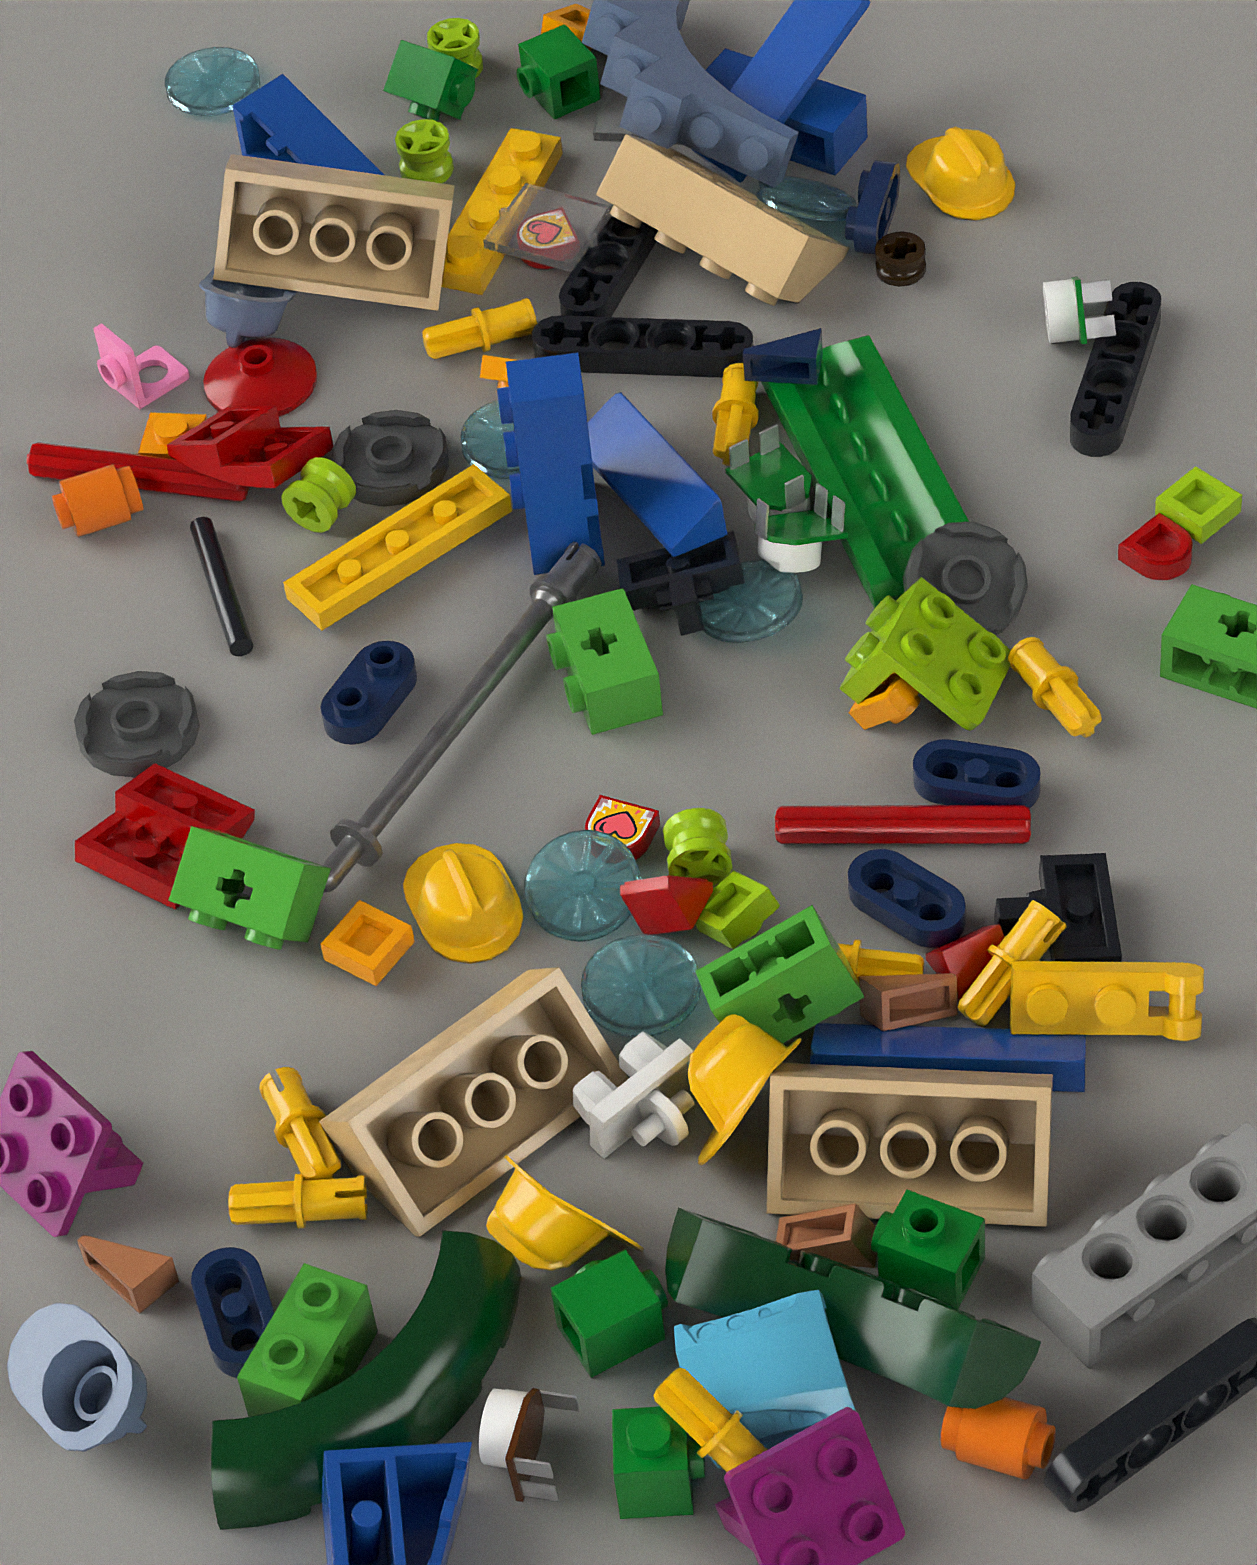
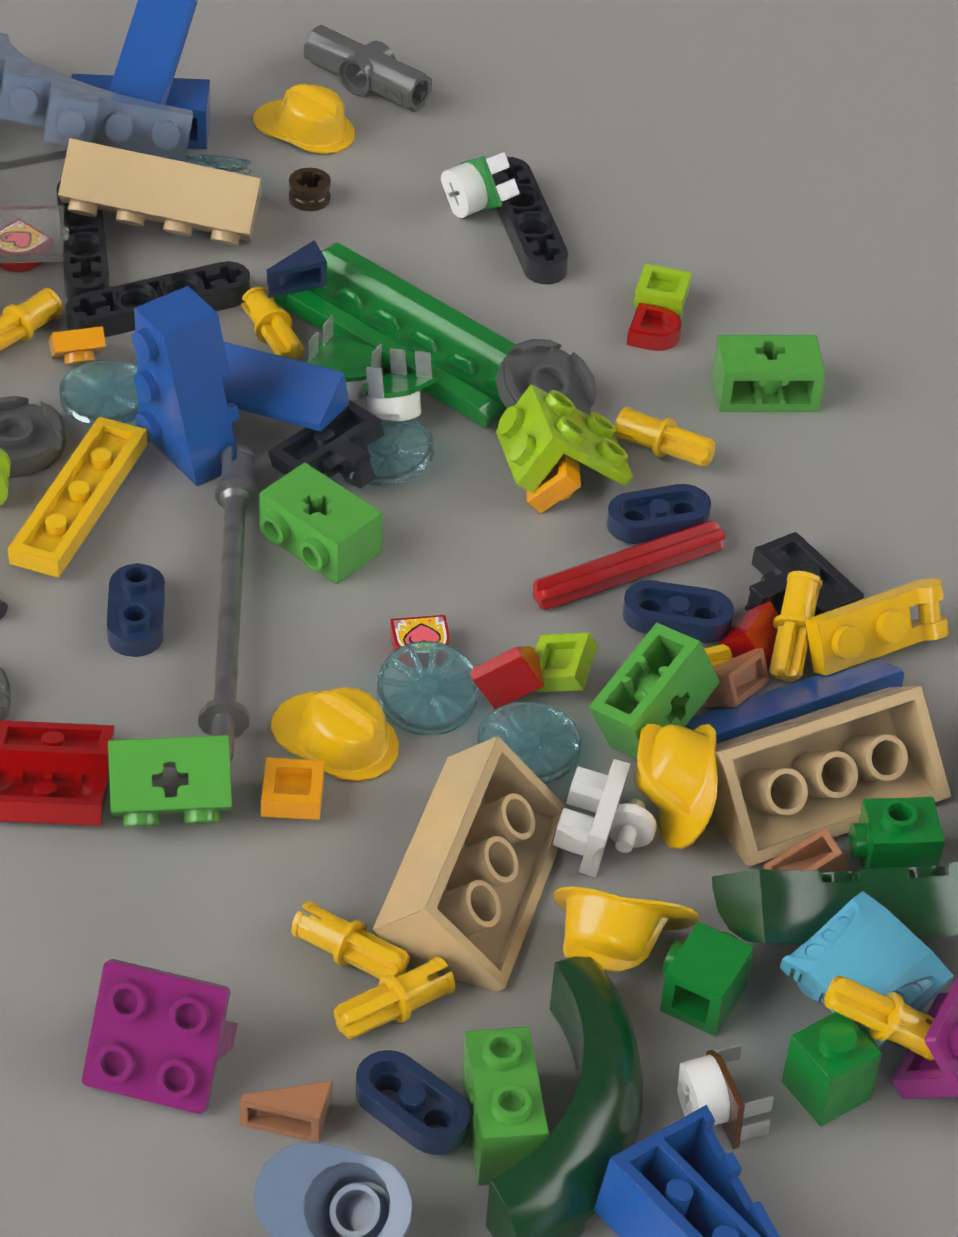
camera: 40 degrees left, 5 degrees down
(698, 845) = (497, 626): lime wheel -> none
(877, 203) = (268, 156): dark blue plate -> none
(1073, 124) = (368, 68): none -> dark grey piece

